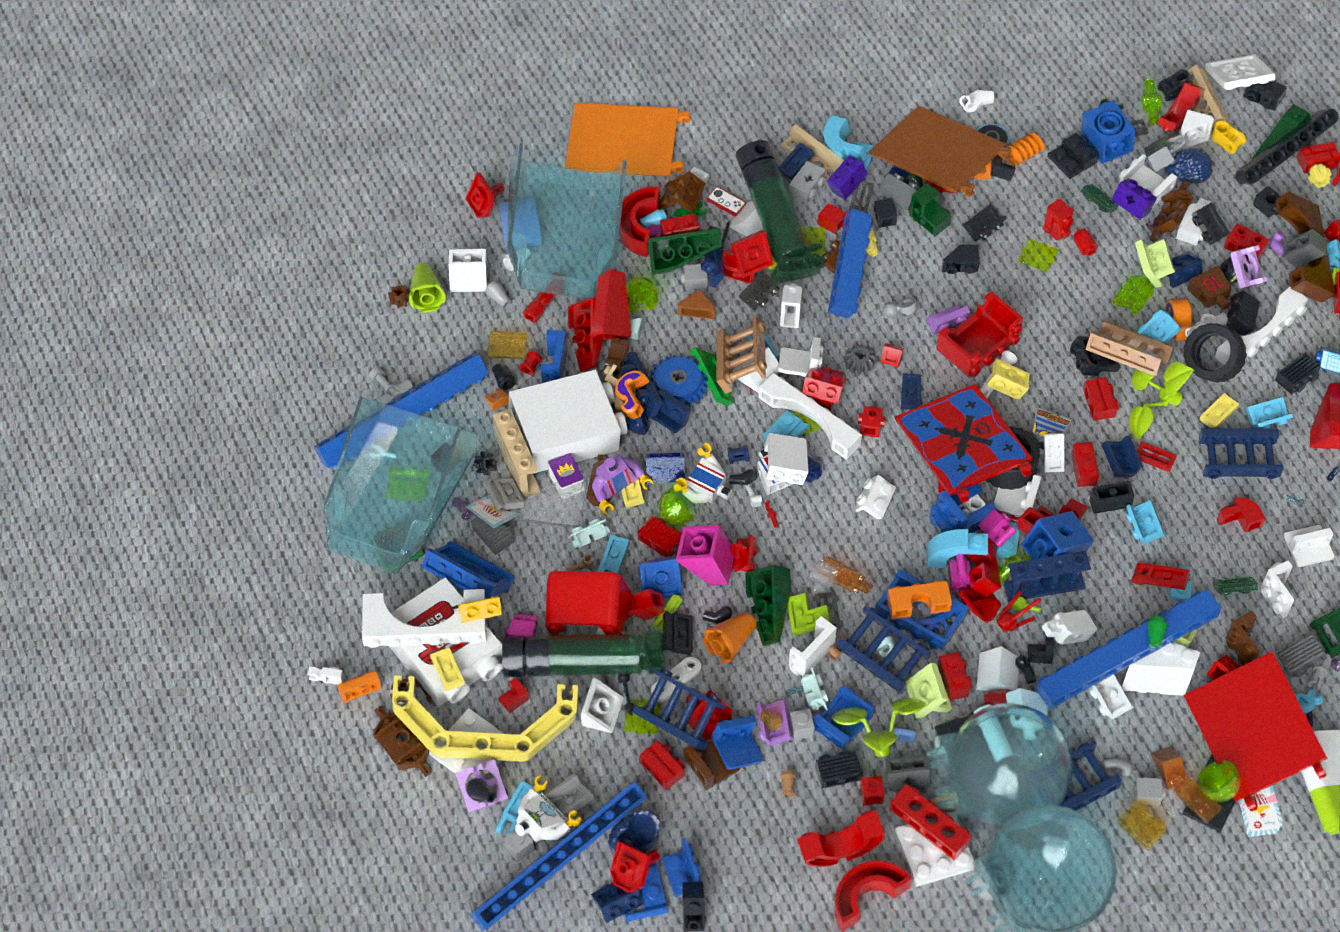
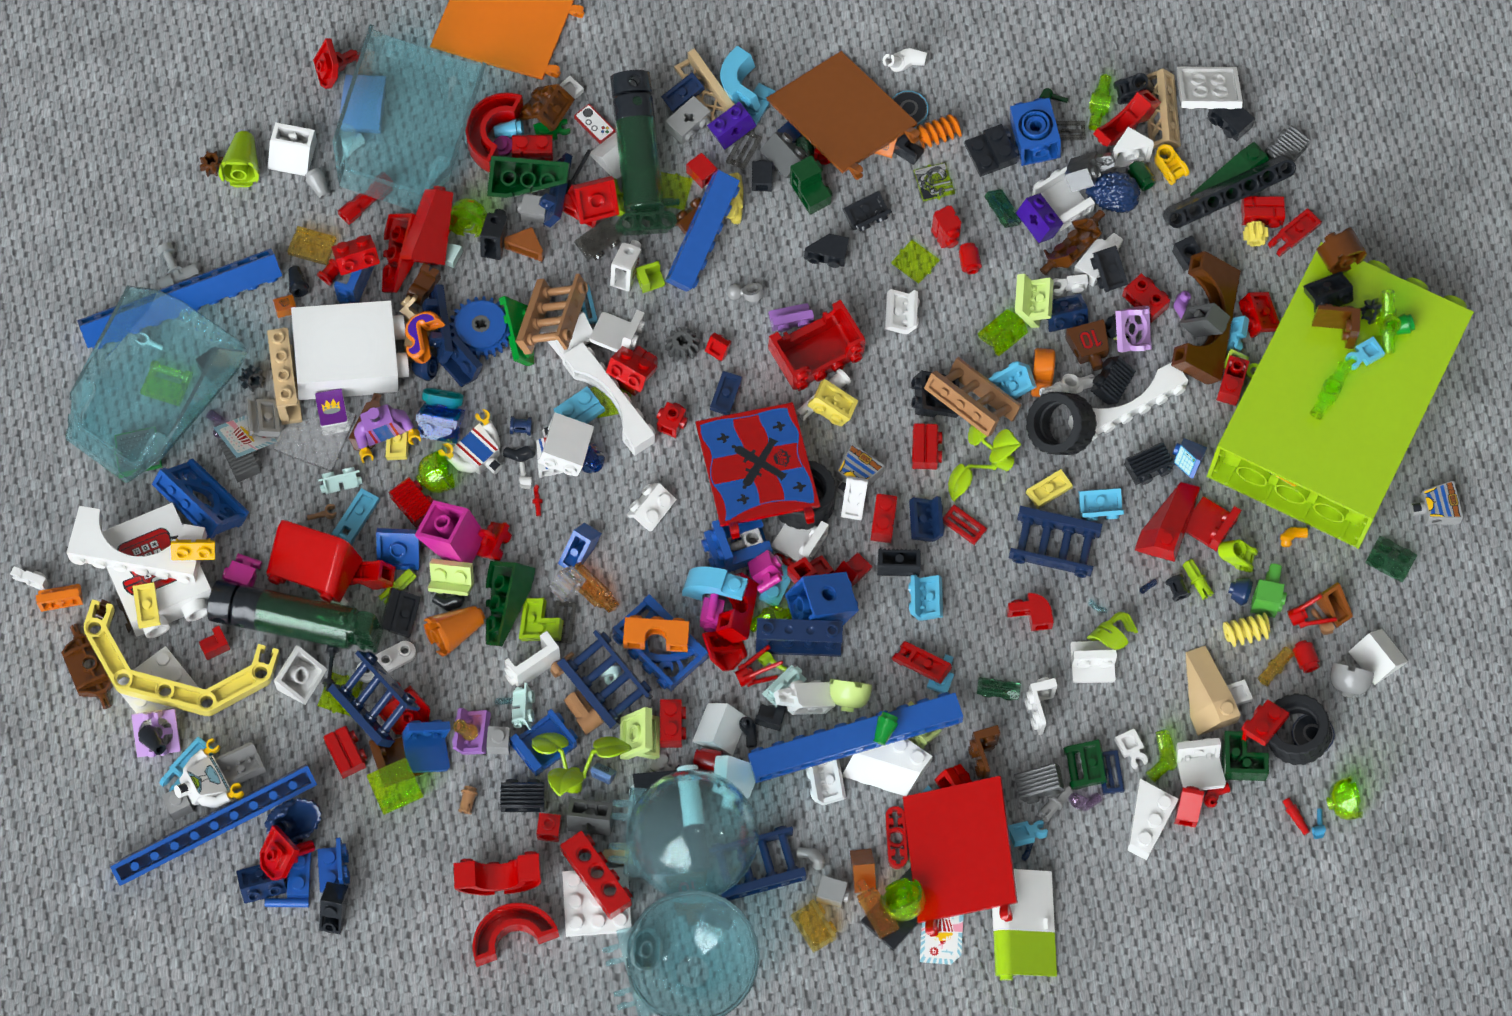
camera: 10 degrees right, 10 degrees up
(554, 337) = (355, 254): none -> red bracket
(654, 446) = (443, 397): none -> teal plate
(667, 295) = (494, 228): none -> black torso
(715, 592) = (451, 577): none -> yellowish green bracket
(720, 783) = (394, 786): none -> clear neon green bracket
(813, 312) = (650, 277): none -> lime panel
(822, 543) = (580, 545): none -> blue slope
(874, 687) = (584, 714): none -> medium nougat piece
(1032, 190) = (934, 182): none -> piece
(1042, 295) = (902, 311): none -> white bracket
(1045, 615) = (783, 681): none -> light aqua hinge
(1106, 616) = (850, 694): none -> yellowish green cylinder
(1181, 244) = (1072, 283): none -> white plate
(1190, 724) = (901, 822): none -> red beam
(1208, 147) = (1142, 175): none -> dark green brick
(1320, 516) = (1116, 639): none -> lime helmet
(1321, 100) = (1290, 144): none -> dark grey brick

